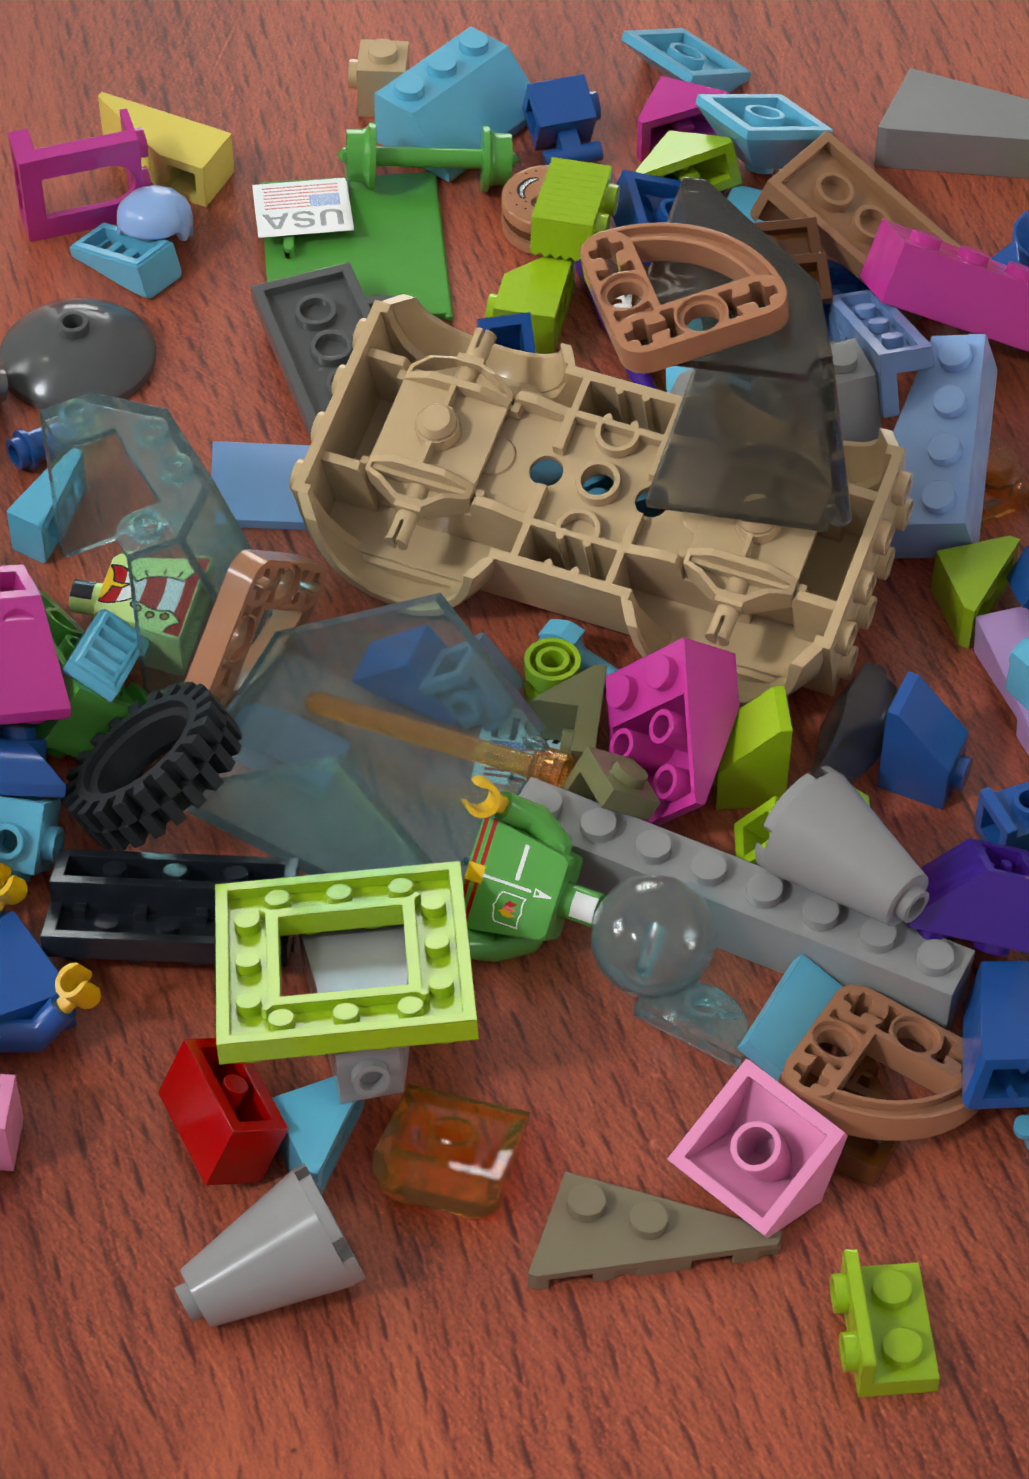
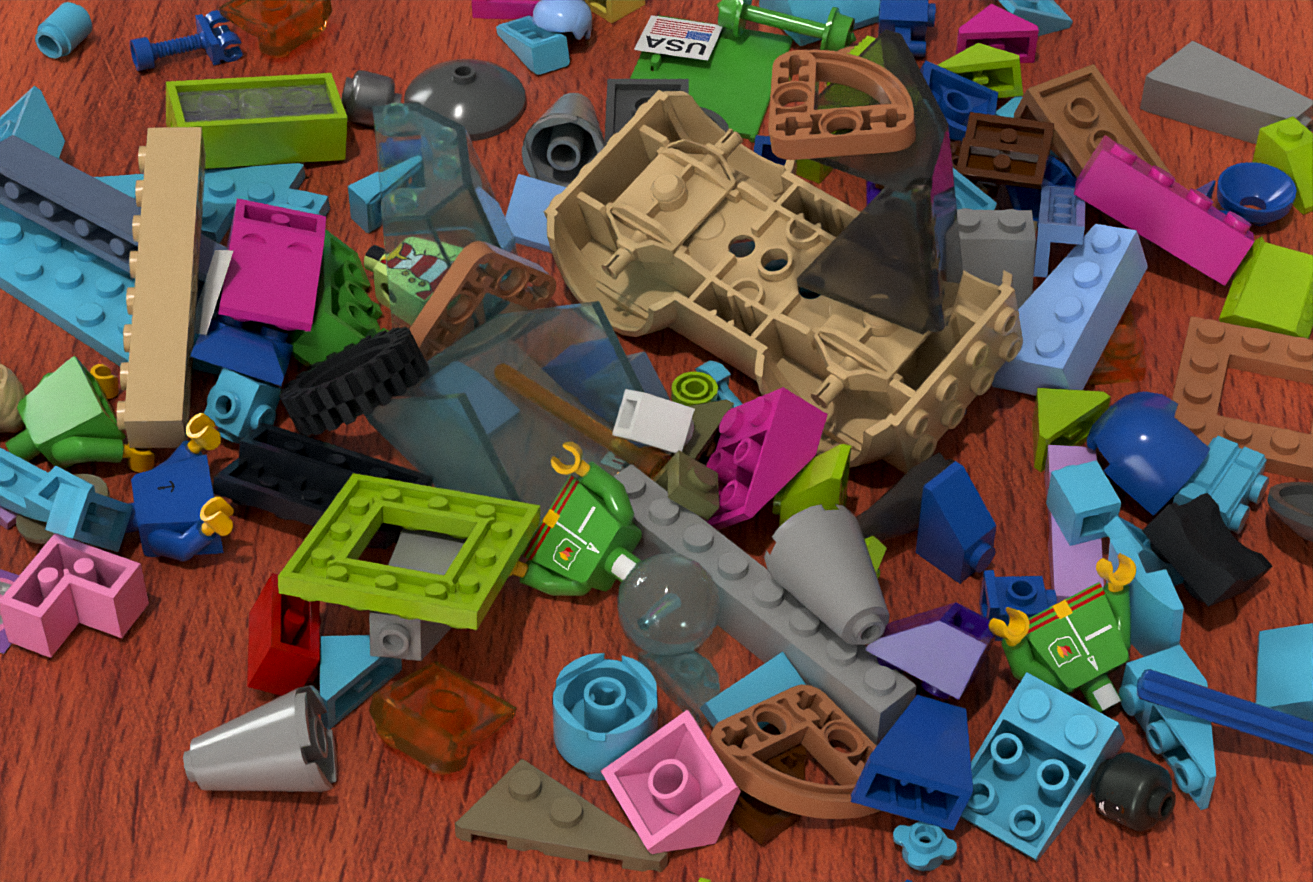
camera: 20 degrees right, 5 degrees down
(104, 655) = (359, 299): medium azure slope -> none
(245, 384) = (563, 140): none -> light grey cone
(539, 718) = (654, 421): none -> white brick
(640, 1089) = (602, 711): none -> medium azure brick
(763, 127) = (1046, 51): medium azure slope -> none

